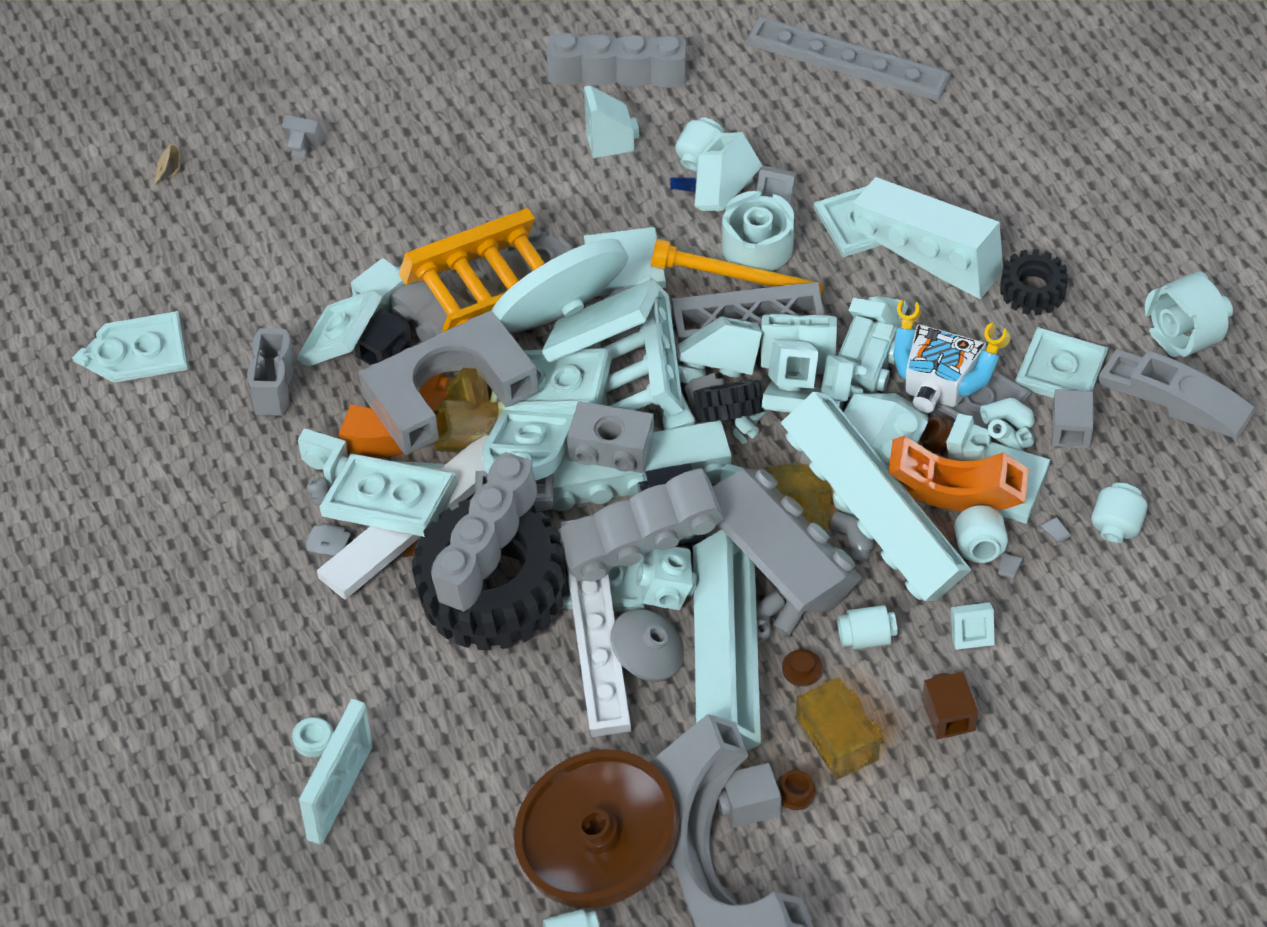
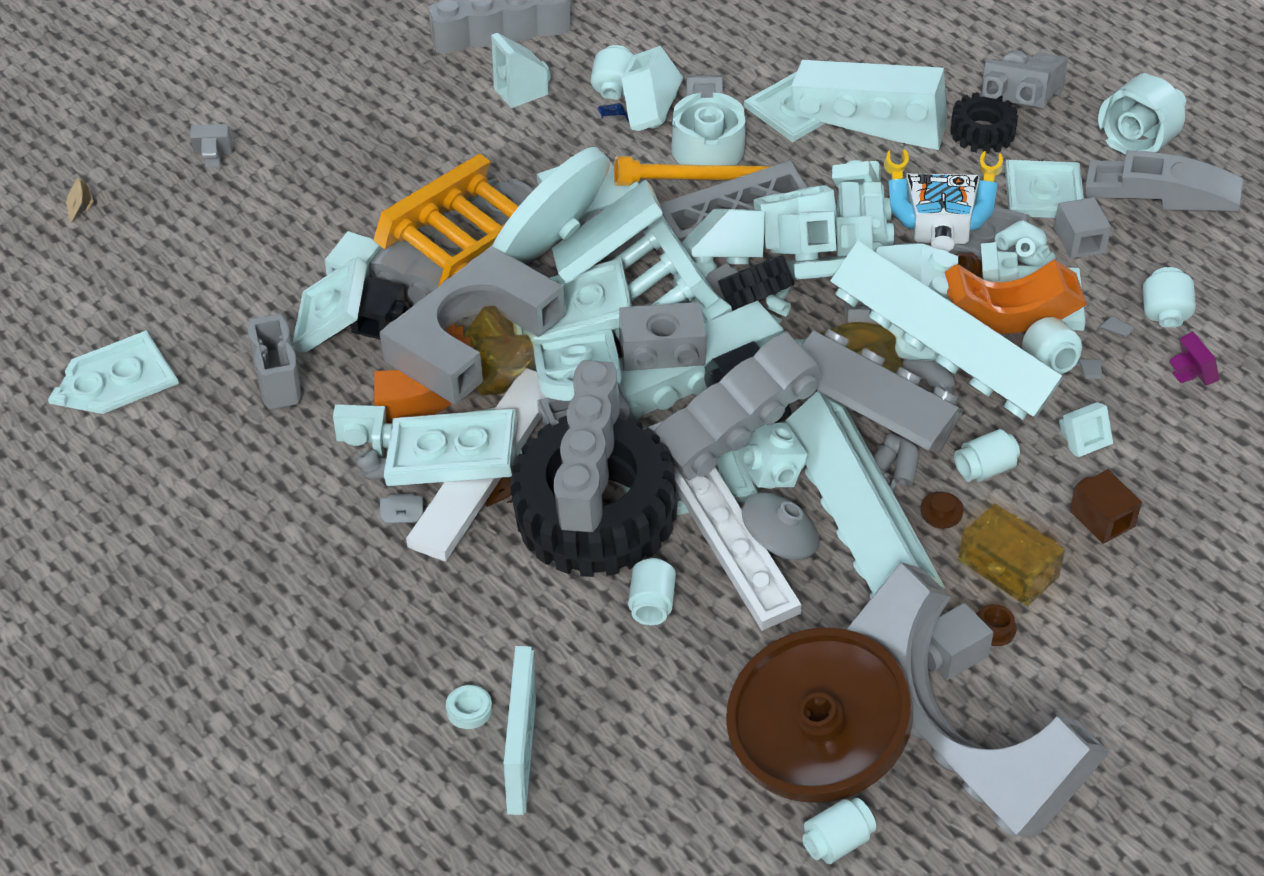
camera: 20 degrees left, 5 degrees down
(508, 675) = (651, 591): none -> light aqua brick
(1093, 245) = (1025, 80): none -> light grey hips
(1109, 584) = (1194, 361): none -> magenta tile

